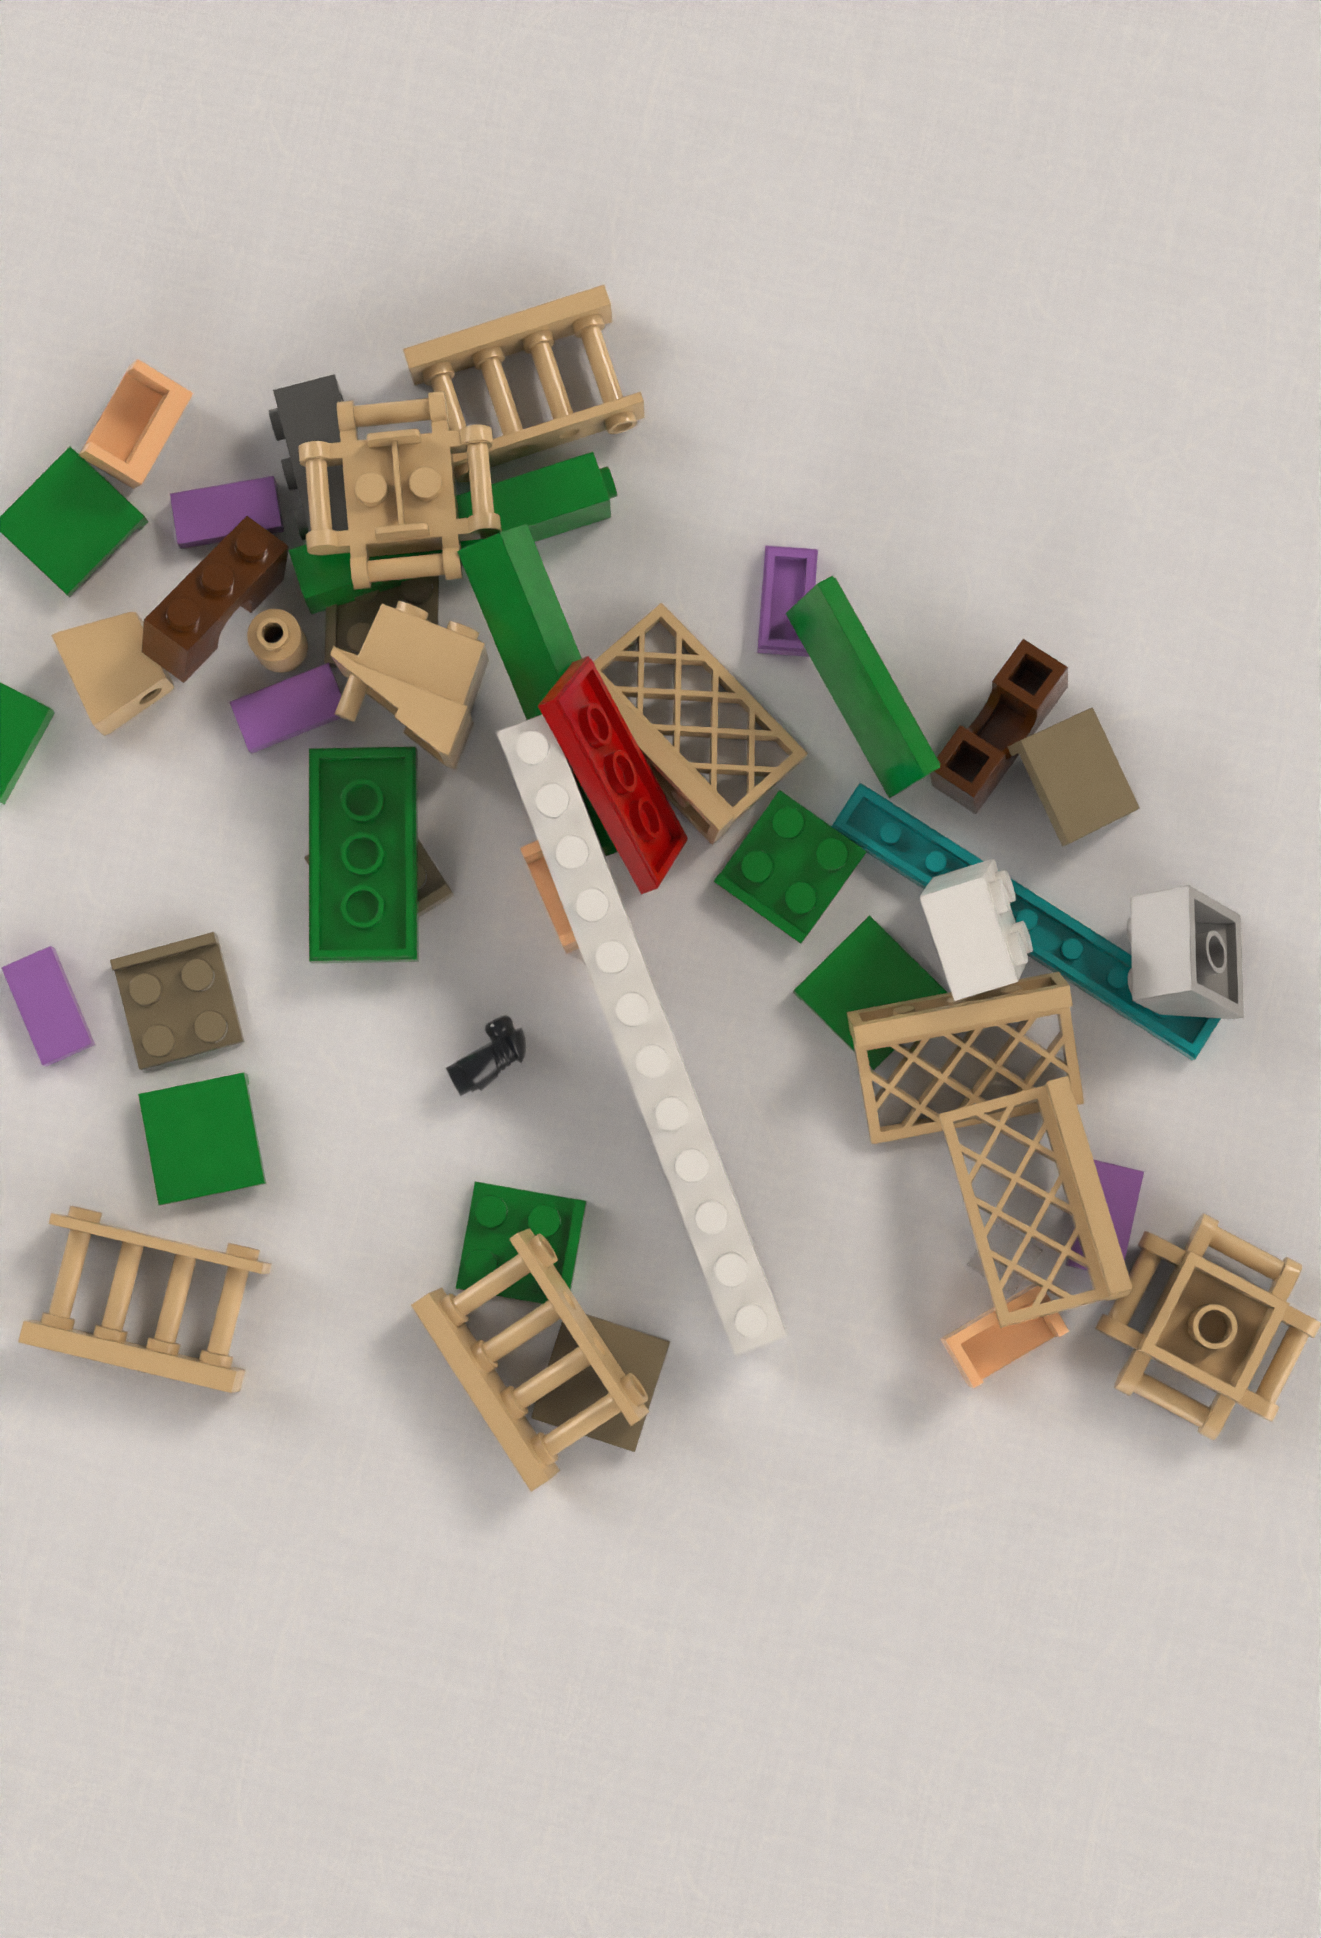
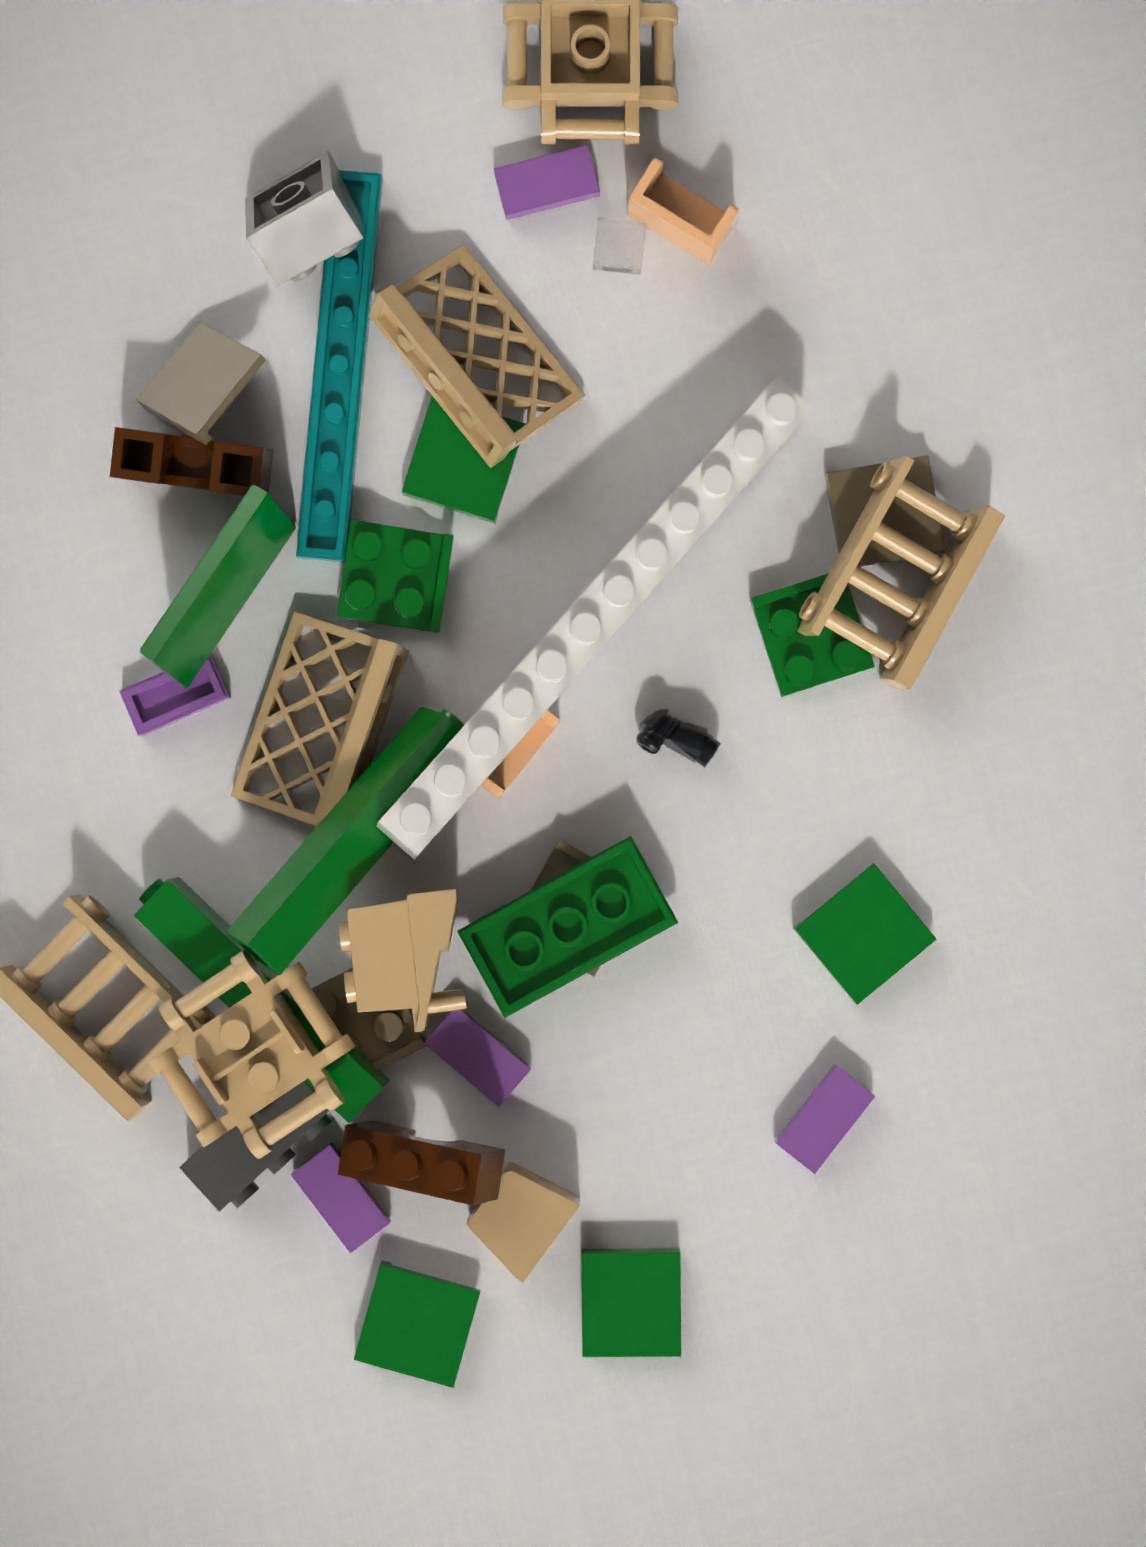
camera: 120 degrees left, 5 degrees up
(109, 1339) = (1066, 919): tan fence -> none
(135, 424) = (307, 1313): light nougat panel -> none
(177, 1000) = (764, 1015): dark tan piece -> none
(288, 651) = (434, 1078): tan brick -> none
(614, 773) = (397, 749): red tile -> none
(976, 928) = (372, 393): white brick -> none
(1081, 1189) = (536, 202): tan fence -> none

